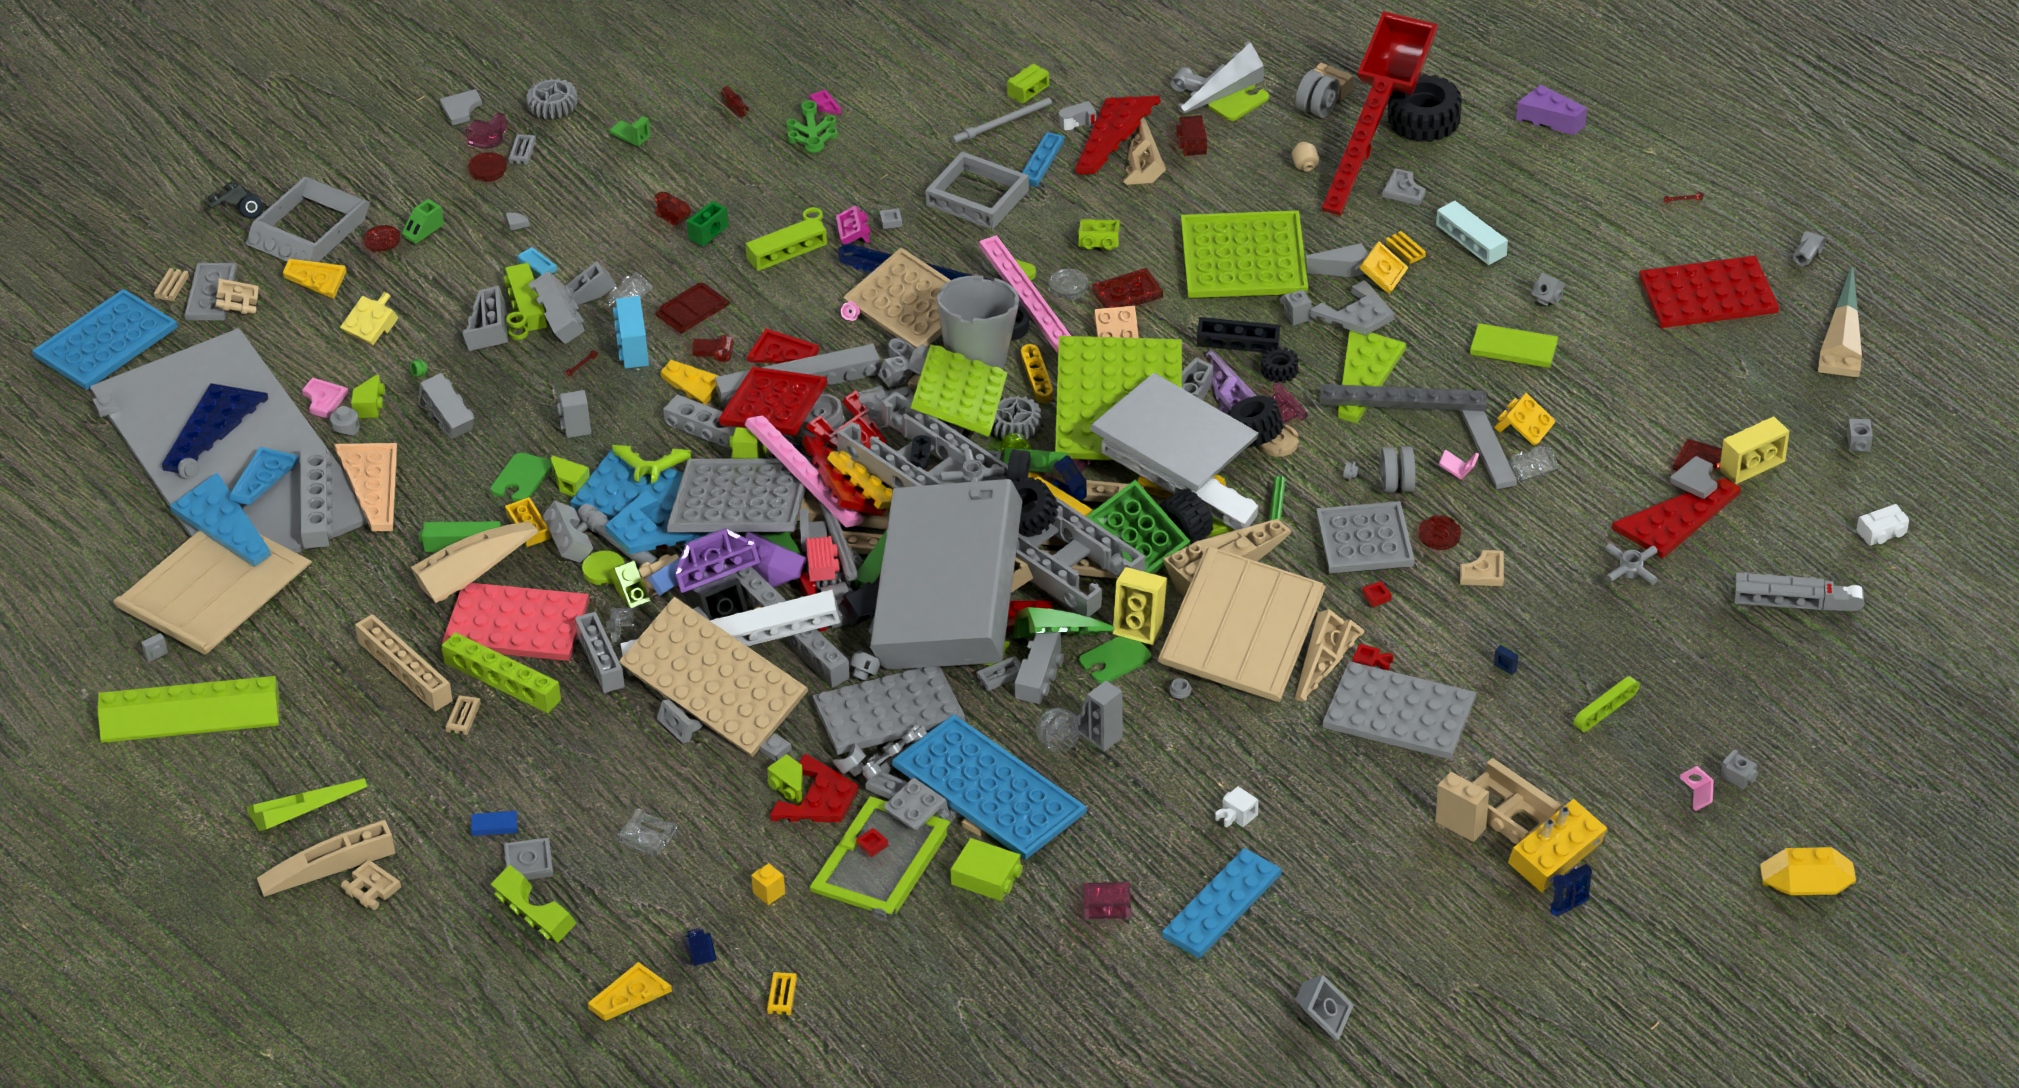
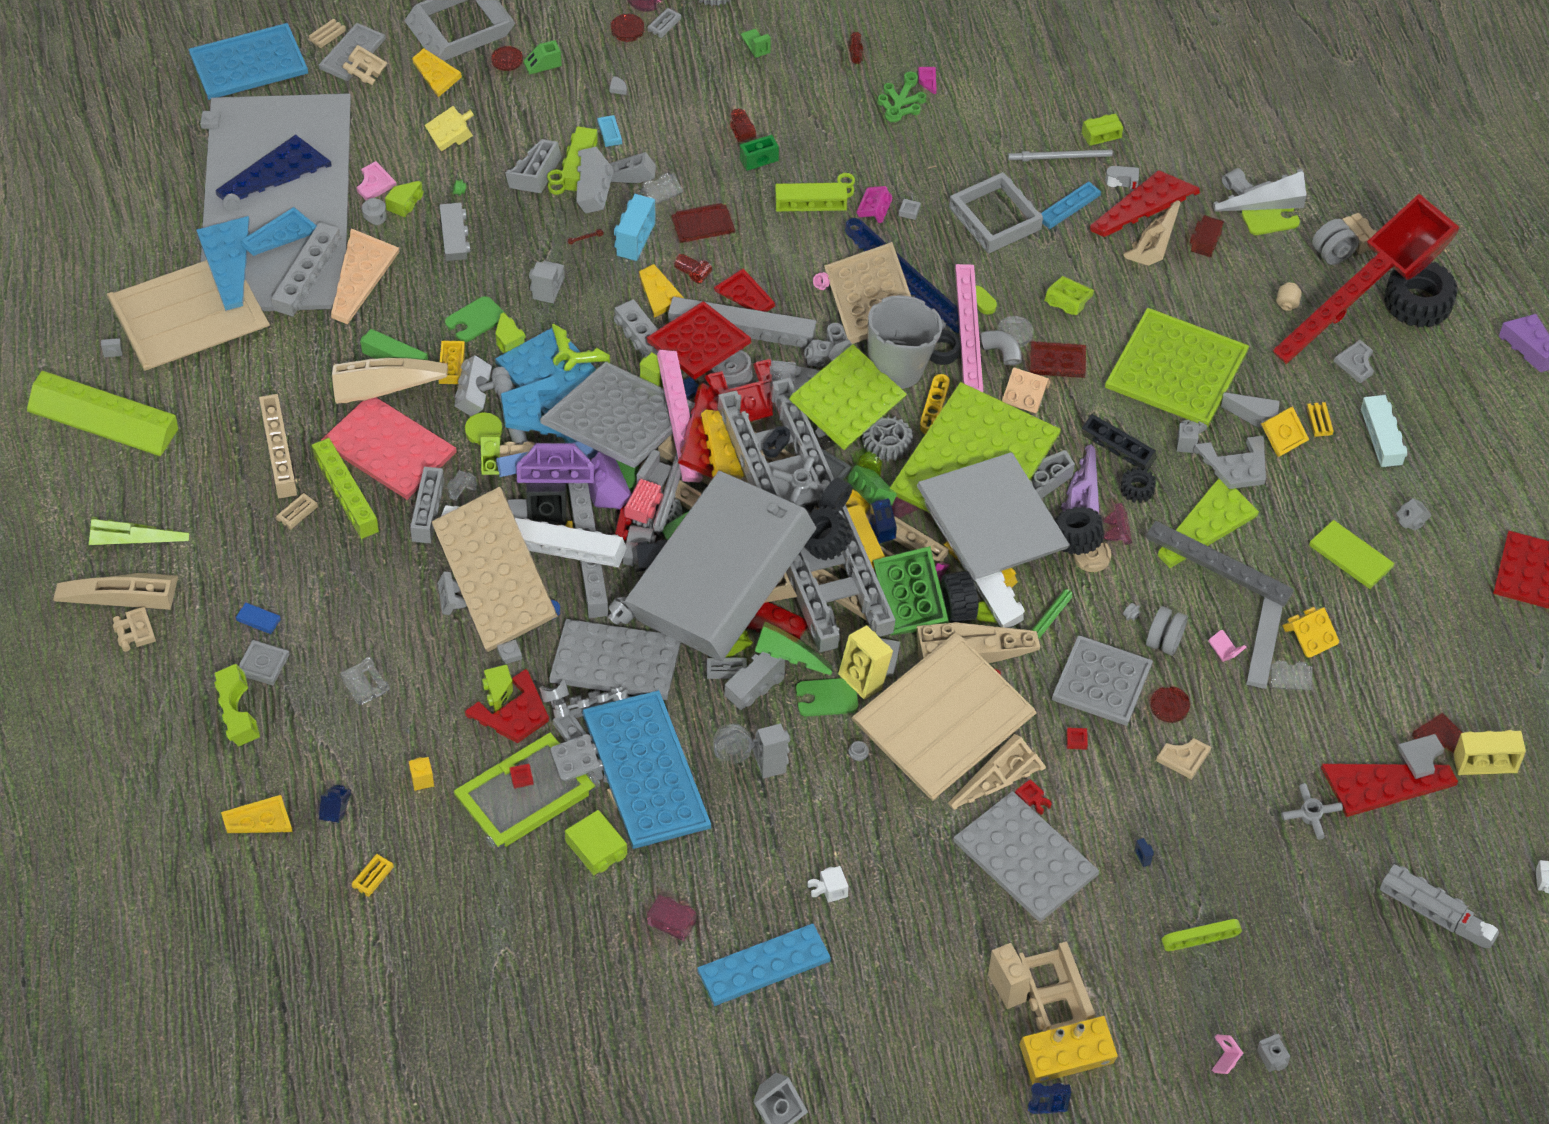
camera: 25 degrees right, 10 degrees up
(1070, 295) = (1004, 342): none -> light grey cylinder

